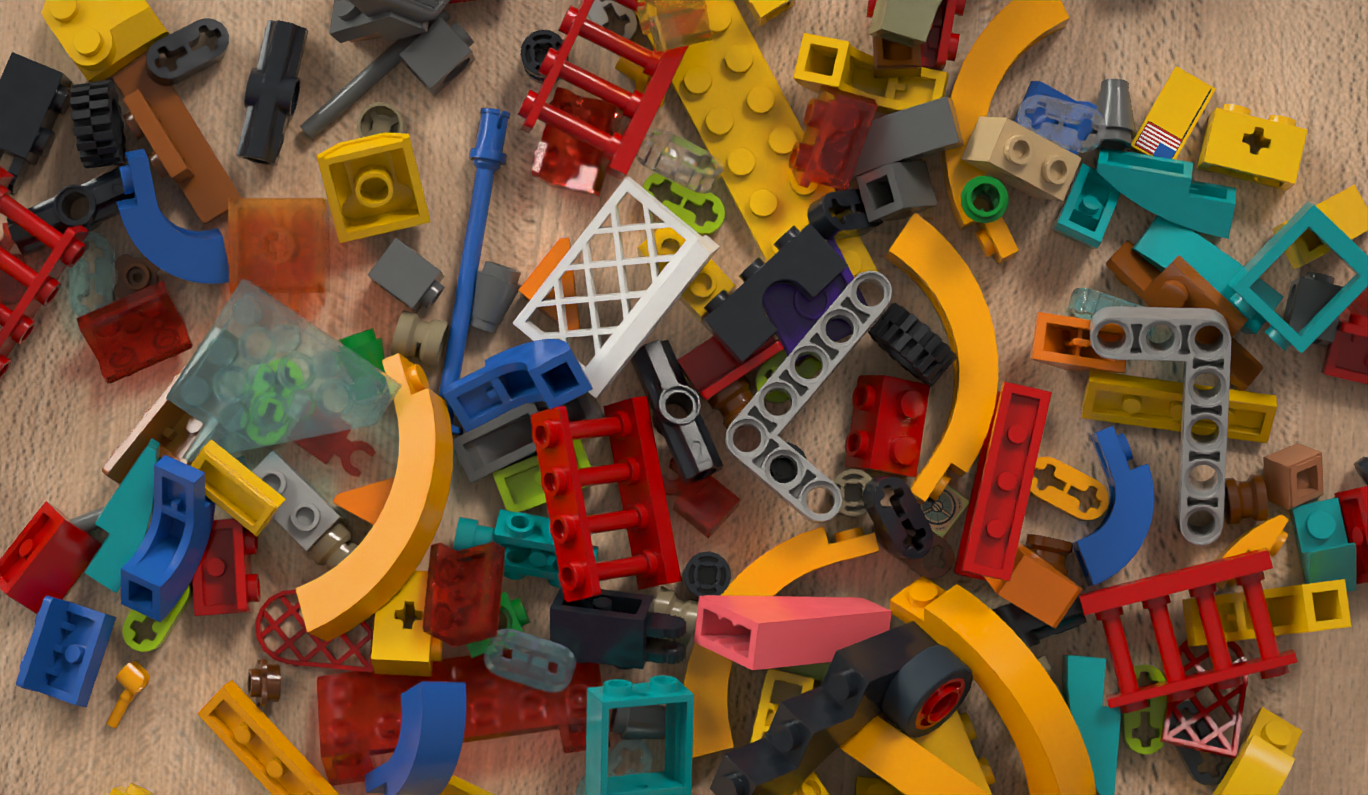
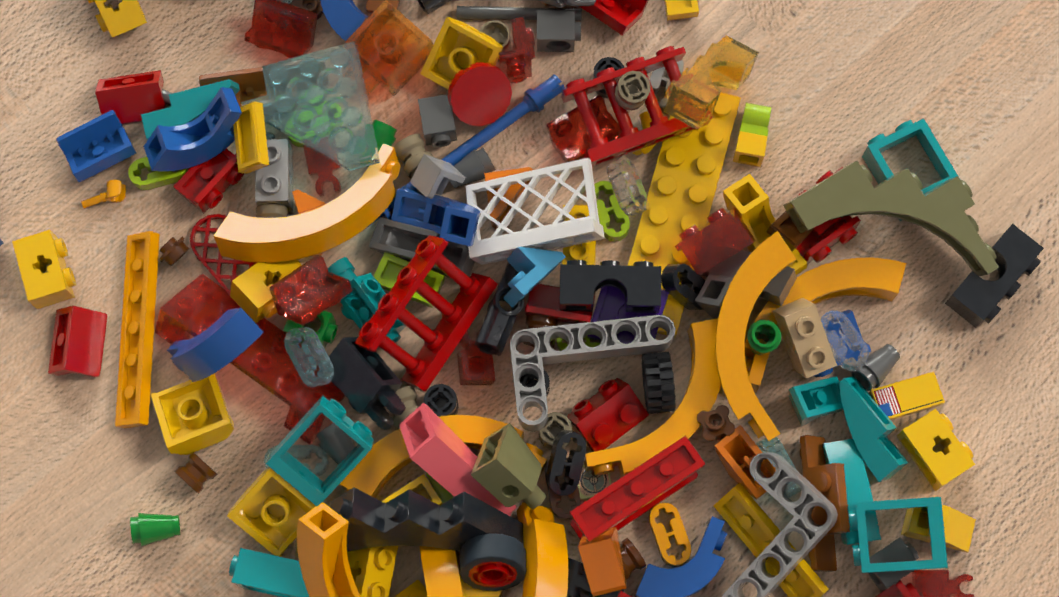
camera: 45 degrees right, 10 degrees down
(426, 112) = (517, 63): none -> clear red bracket
(430, 208) = (479, 94): none -> red tile
(466, 343) = (434, 175): none -> light grey panel
(592, 62) = (629, 97): none -> dark tan wheel
(676, 348) = (532, 268): none -> dark azure slope
(850, 581) = (509, 469): none -> olive torso
(922, 178) = (748, 283): none -> light orange arch
(1025, 329) = (718, 432): none -> reddish brown plate

